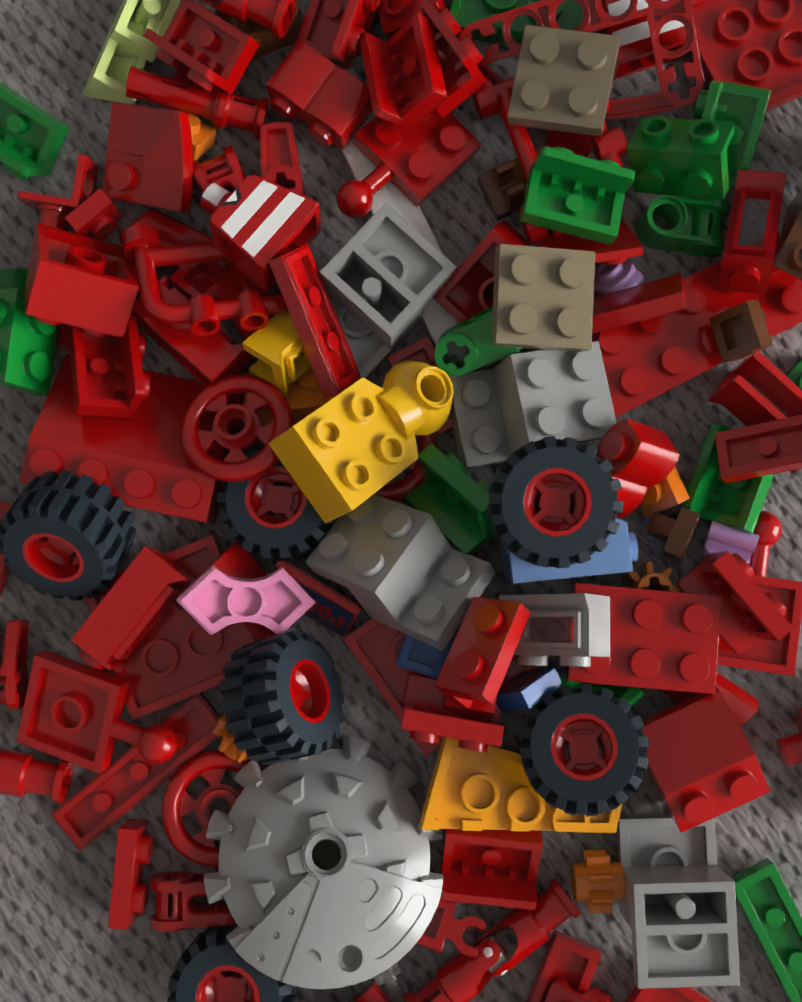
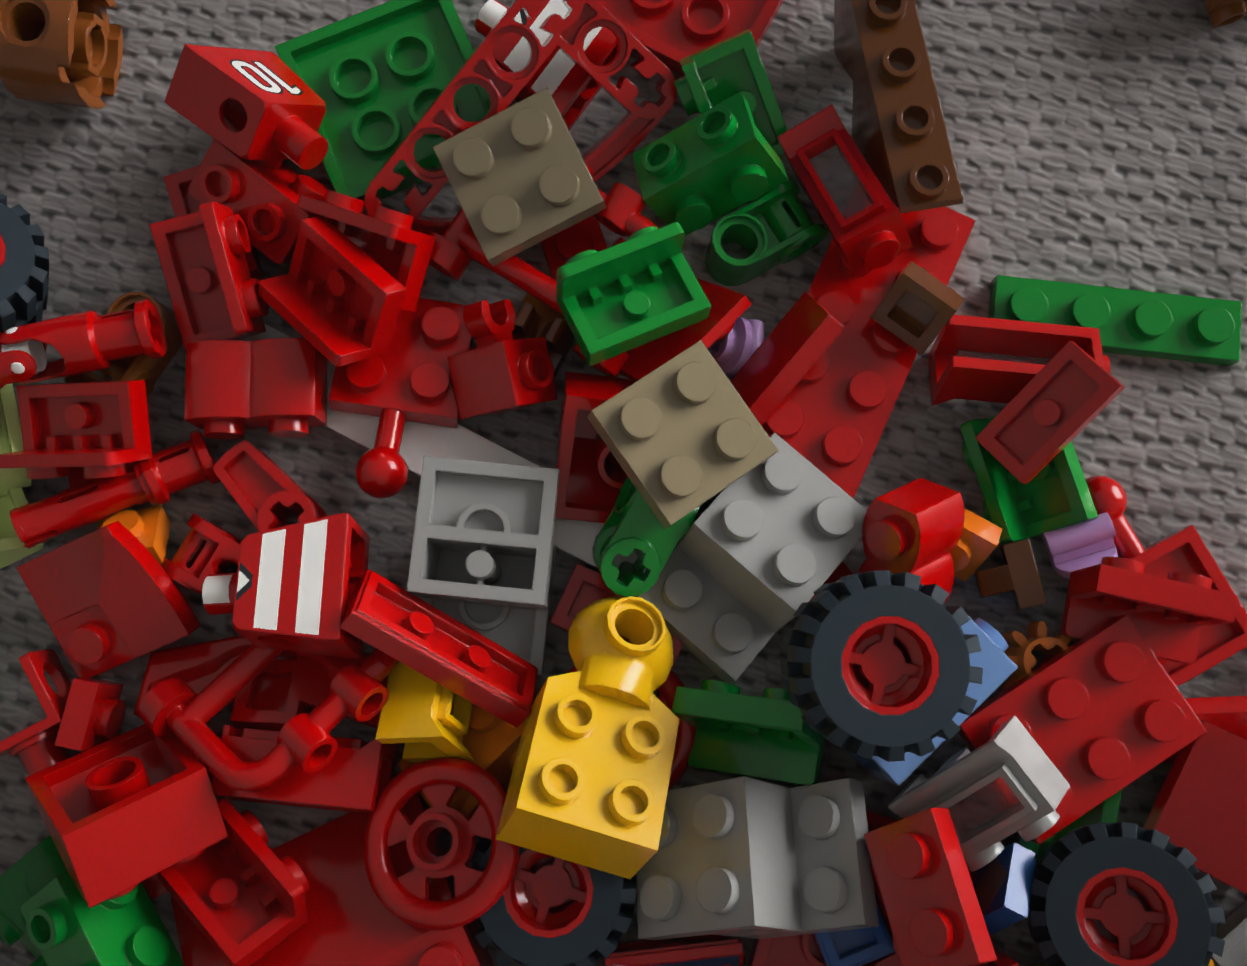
camera: 40 degrees left, 5 degrees down
(467, 190) = (500, 371): none -> red brick

